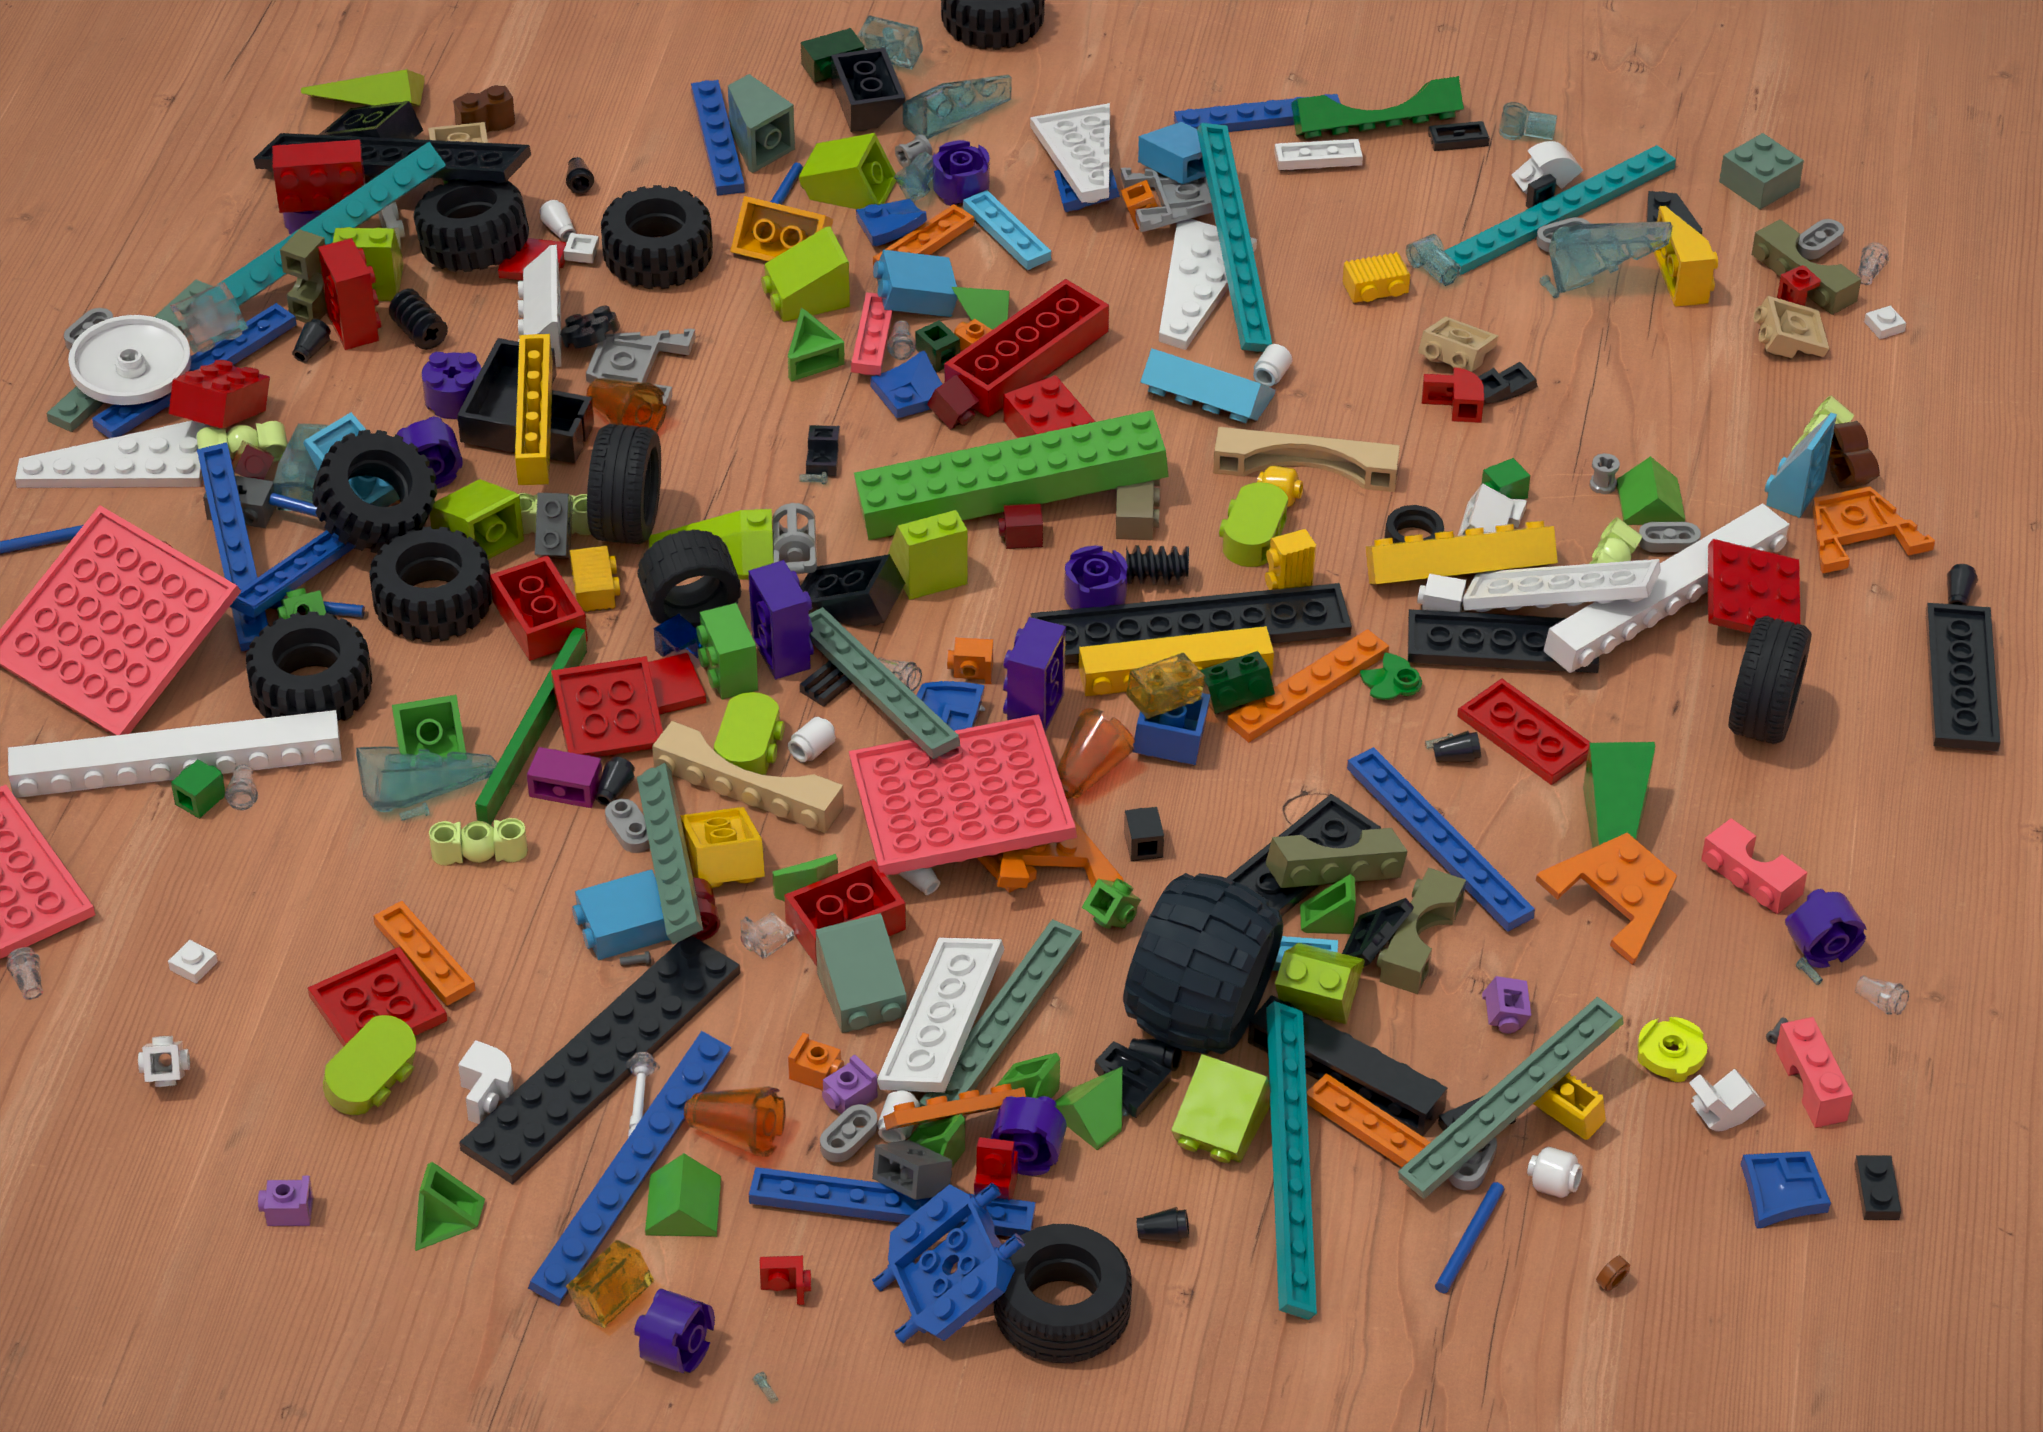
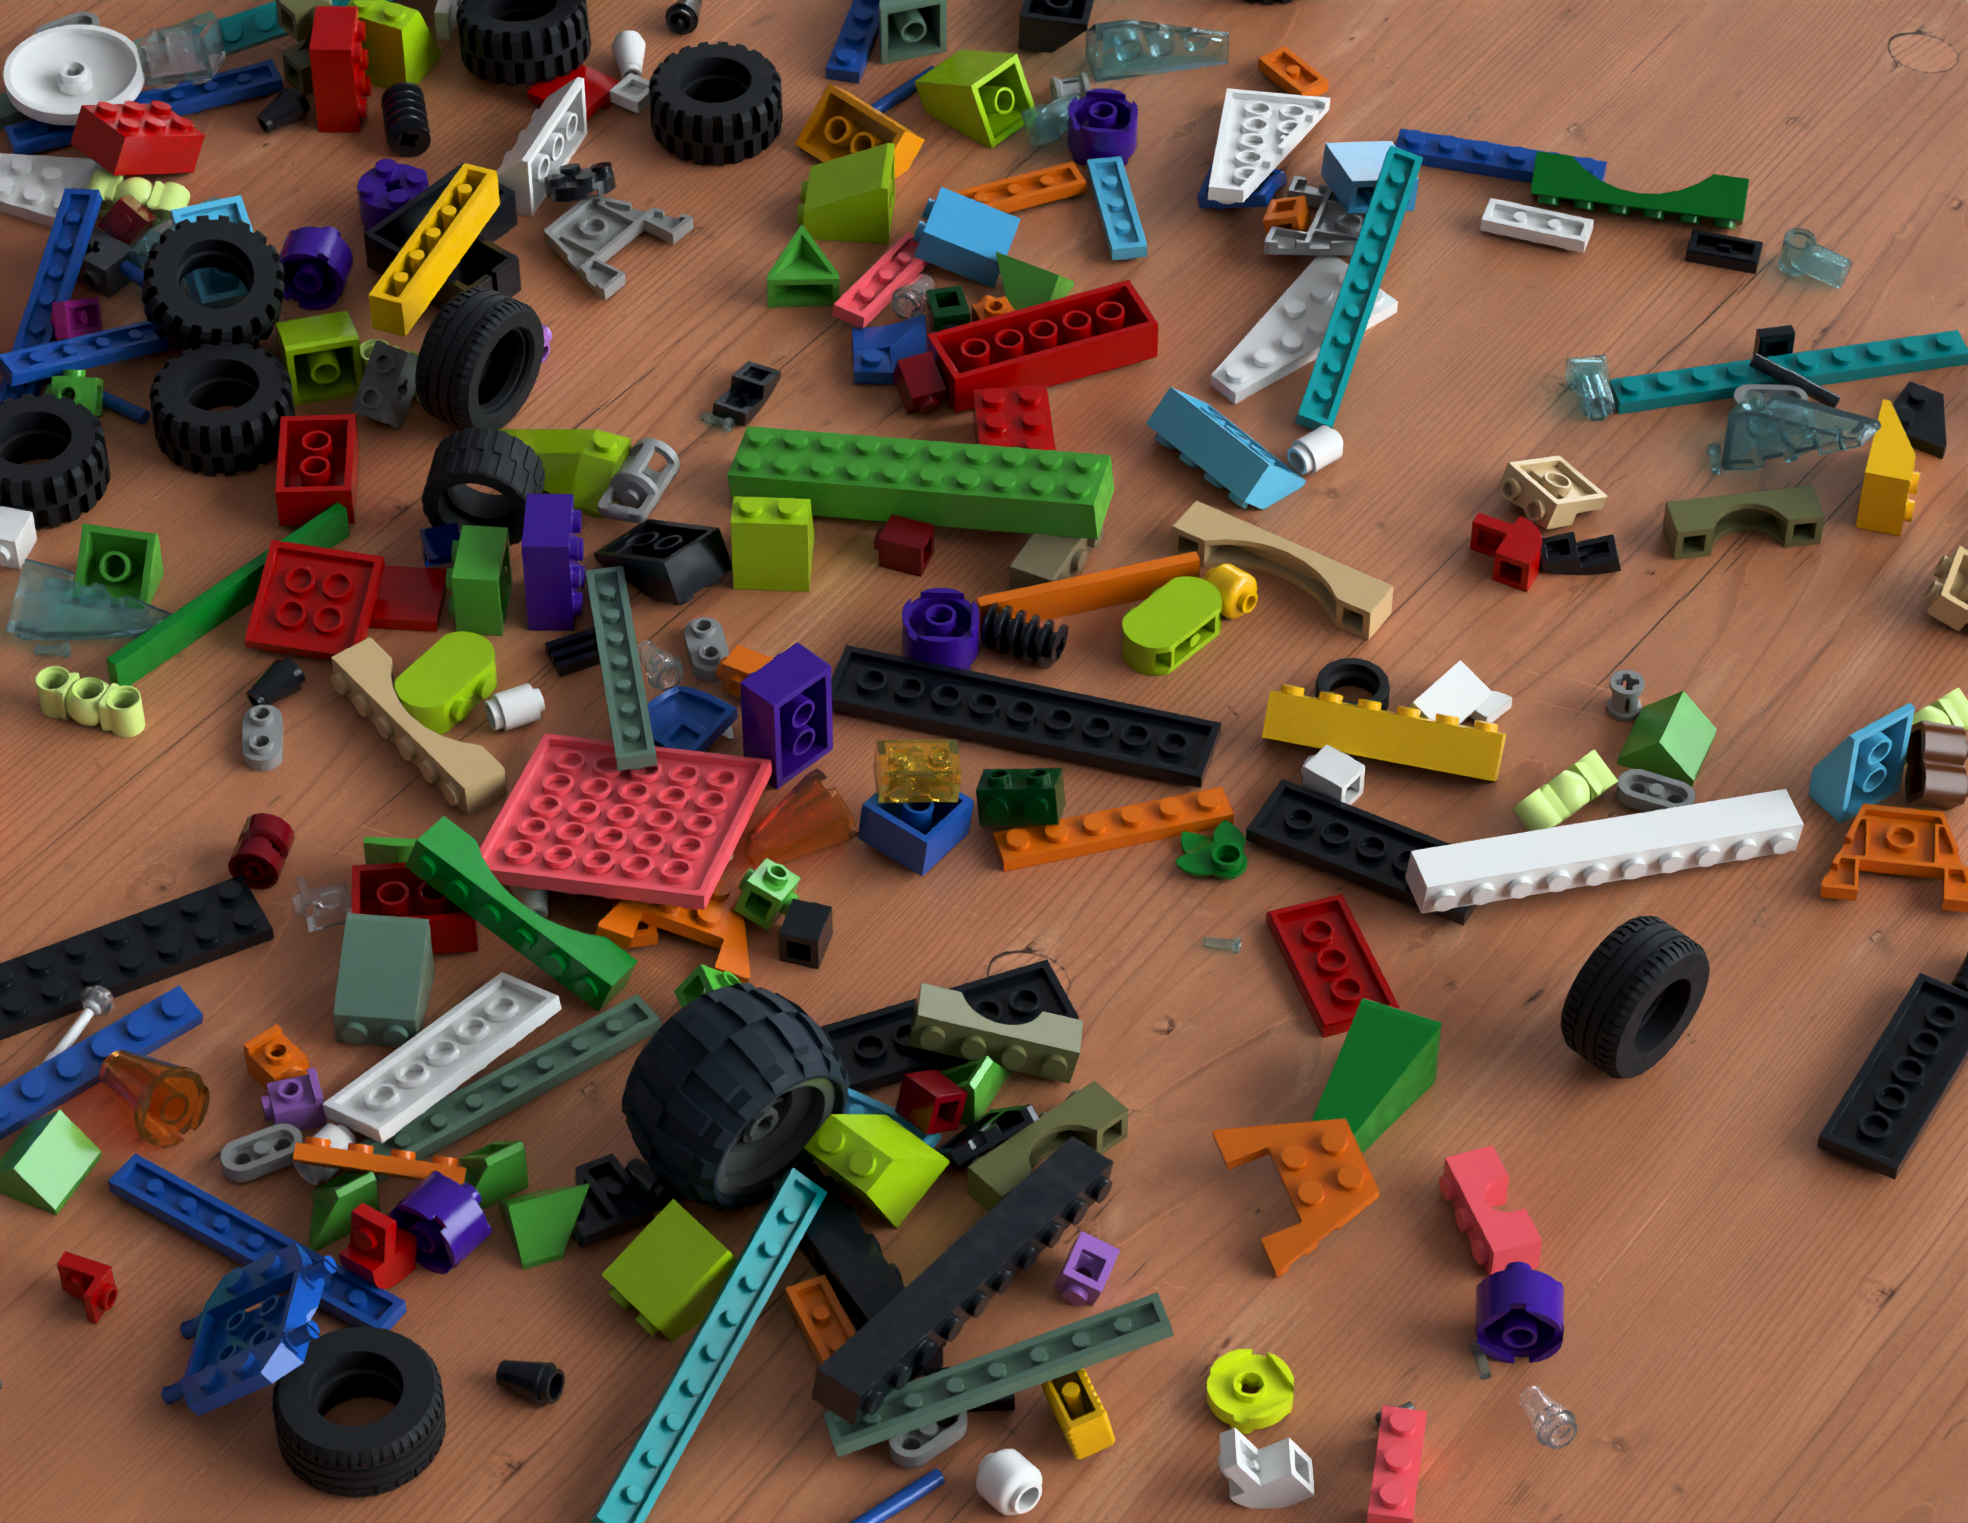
camera: 25 degrees right, 0 degrees up
(264, 550) = (76, 317): none -> magenta plate
(564, 777) = (224, 661): magenta brick -> none
(593, 578) = (401, 457): yellow brick -> none
(621, 915) = (185, 831): dark azure brick -> none
(628, 402) = (562, 282): clear orange cone -> none
(644, 958) = (183, 887): dark grey piece -> none
(669, 853) = (266, 779): sand green plate -> none
(723, 846) = (339, 793): yellow slope -> none
(880, 870) = (579, 961): none -> green arch
(889, 220) = (990, 159): blue plate -> none
(911, 1169) = (289, 1213): dark grey brick -> none
(923, 650) = (705, 647): none -> light grey plate
(1068, 92) = (1292, 73): none -> orange plate
(1099, 813) = (767, 893): none -> bright green brick
(1107, 666) = (979, 744): yellow brick -> none
(1186, 513) = (1093, 589): none -> orange tile
(1291, 560) = (1173, 678): yellow brick -> none
(1324, 922) = (931, 1102): none -> dark red brick
(1376, 277) = (1506, 386): yellow brick -> none
(1439, 1044) = (962, 1282): none -> black brick
(1441, 839) = (1142, 1056): blue plate -> none
(1458, 748) = (1234, 957): black cone -> none
(1508, 479) = (1499, 667): green brick -> none
(1547, 159) = (1807, 310): white brick -> none
(1562, 585) = (1468, 807): white plate -> none
(1569, 212) = (1789, 377): none -> black piece
(1628, 311) = (1786, 515): none -> olive arch
(1750, 585) = (1707, 887): red plate -> none

